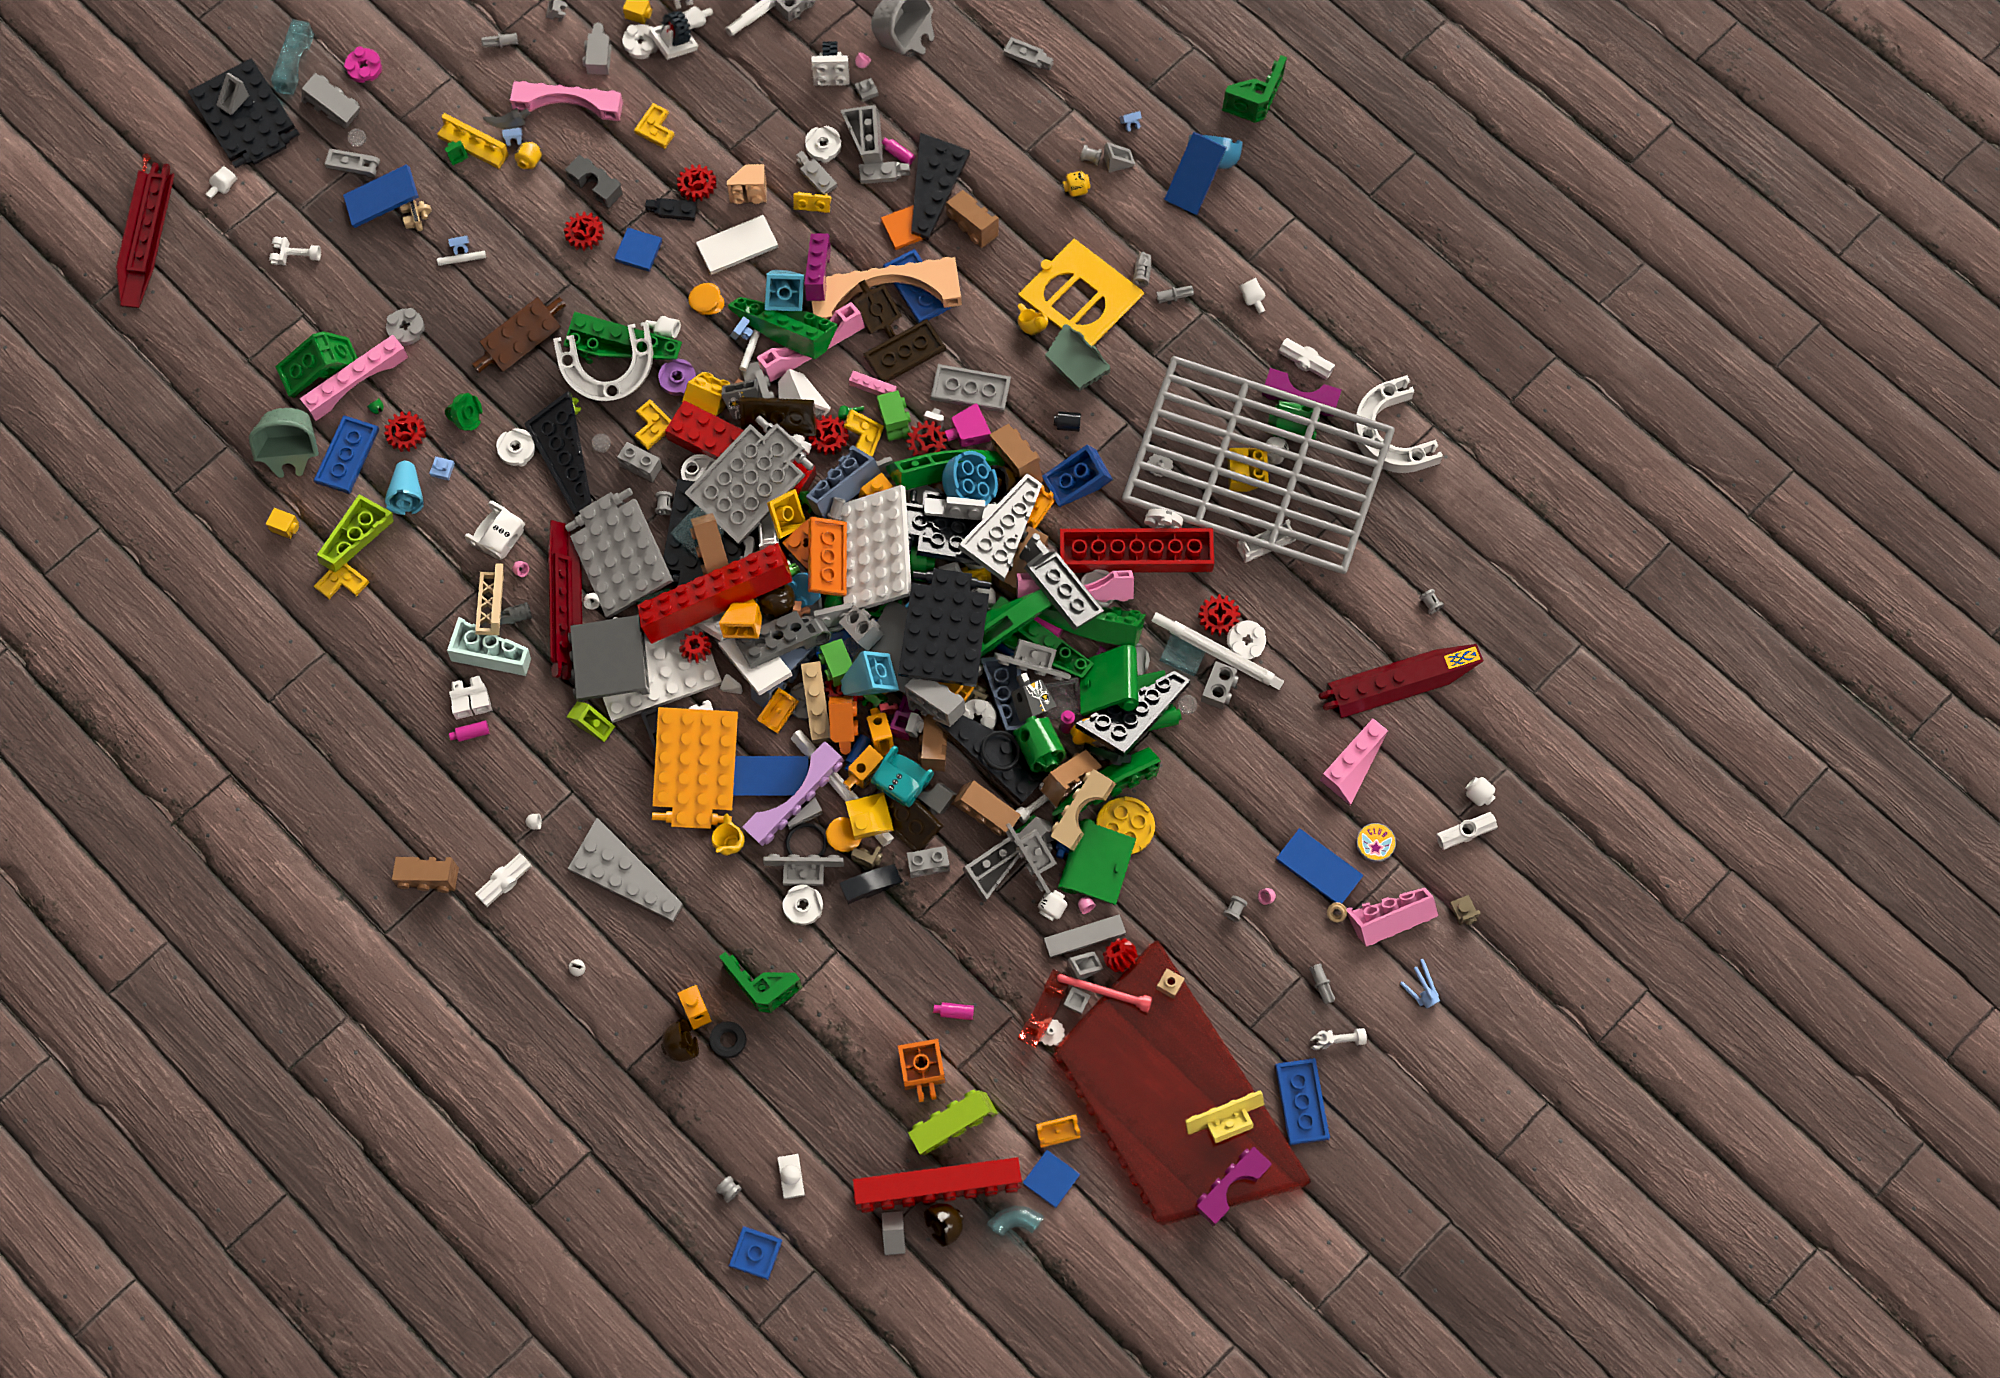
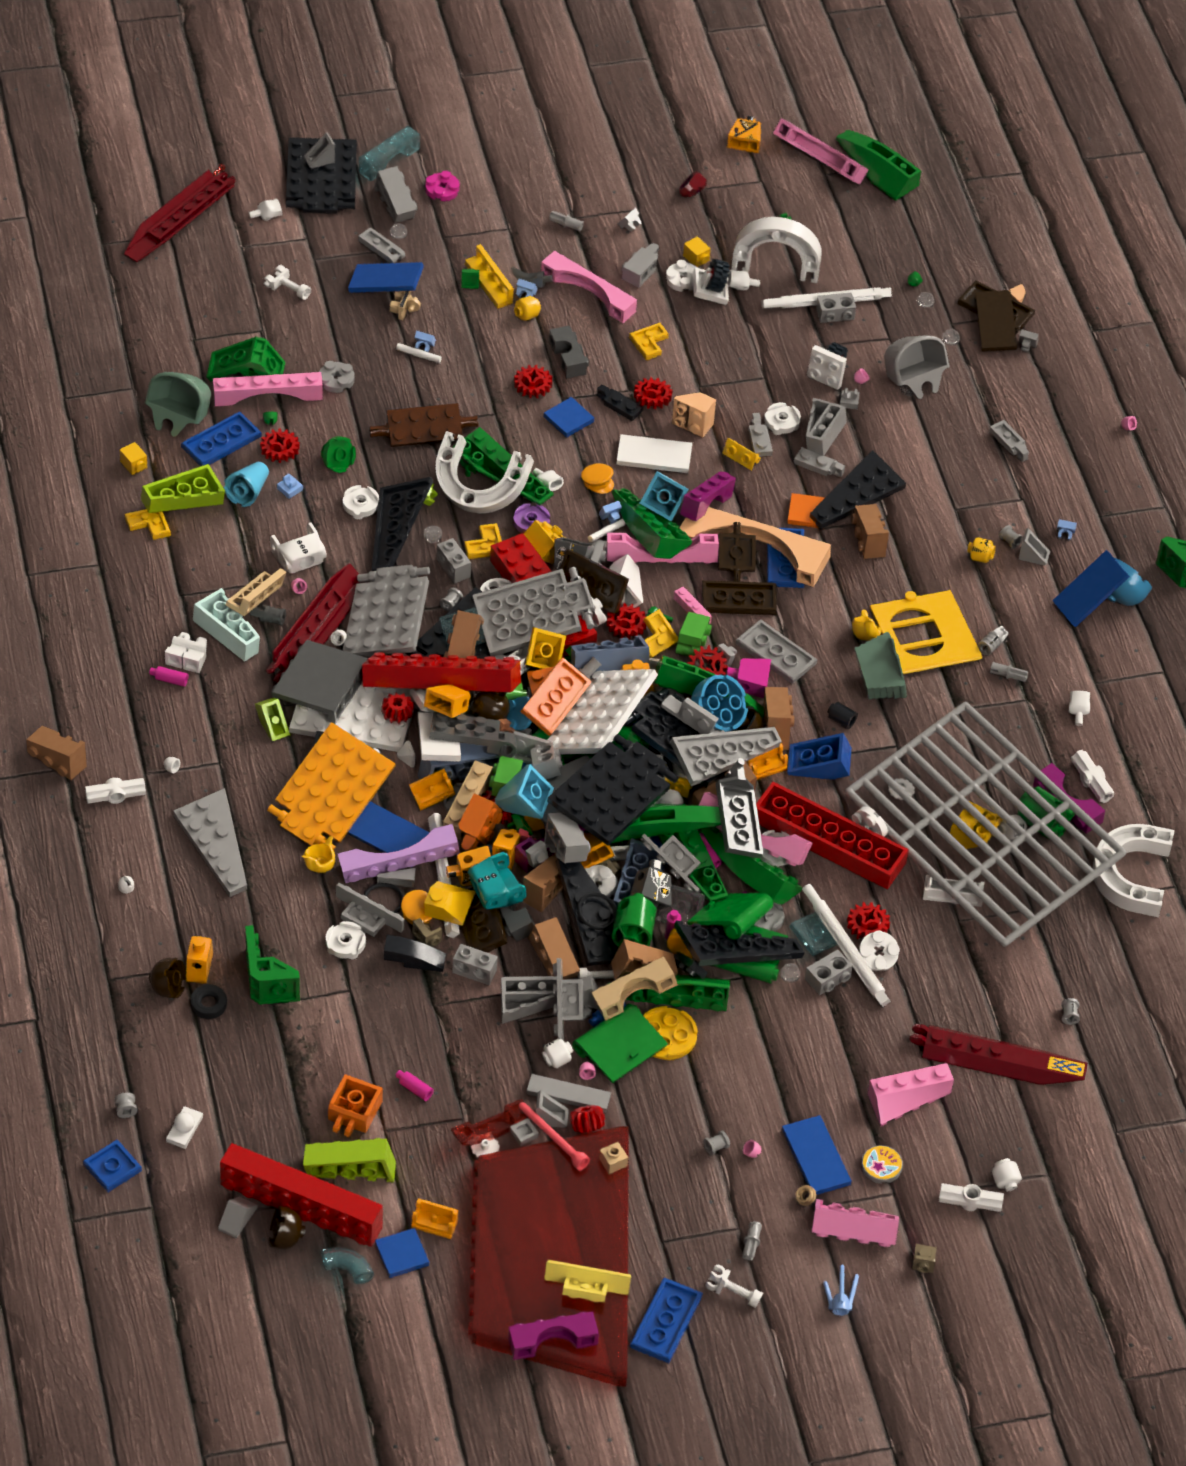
camera: 30 degrees right, 20 degrees down
(898, 151) = (843, 454): dark pink cylinder -> none

